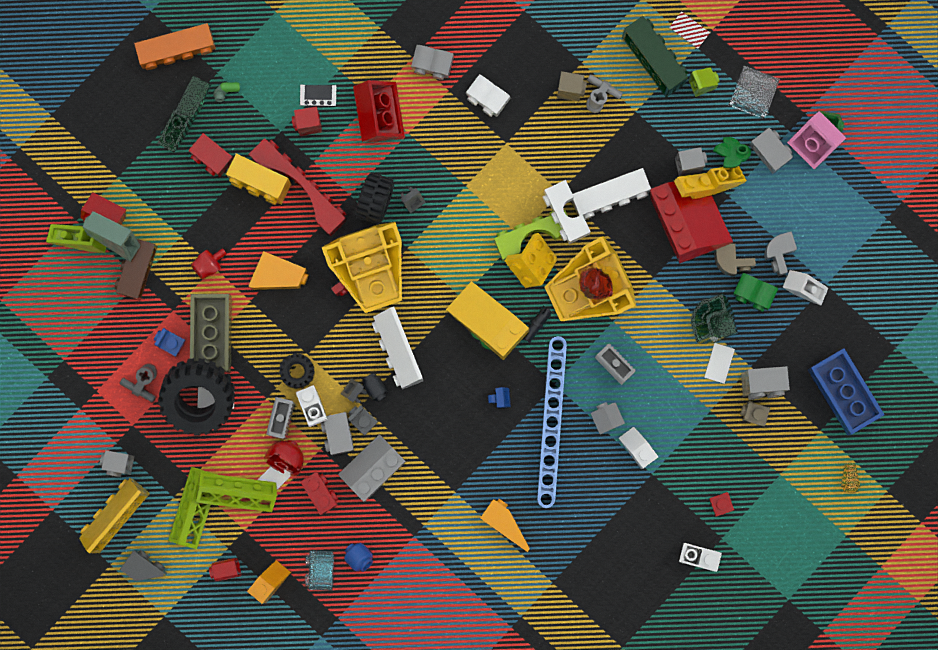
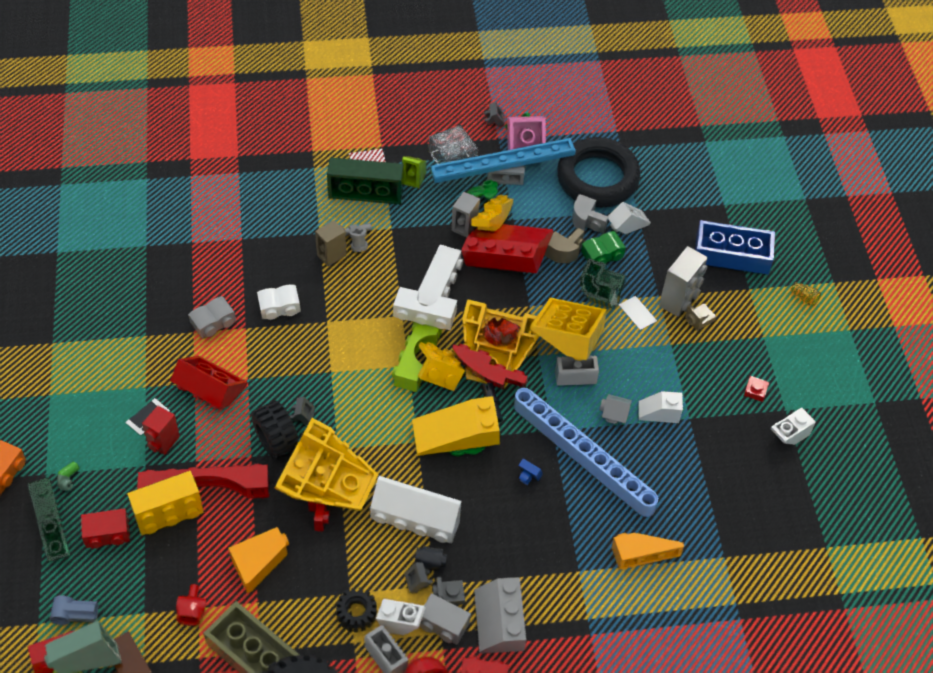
camera: 55 degrees left, 30 degrees down
(138, 189) = (66, 610): none -> sand blue piece
(556, 291) = (480, 365): none -> red slope
(643, 330) = (570, 327): none -> yellow slope
(771, 145) = (502, 160): none -> dark azure tile
(825, 92) = (495, 115): none -> dark grey tile
(849, 195) = (605, 149): none -> black tyre

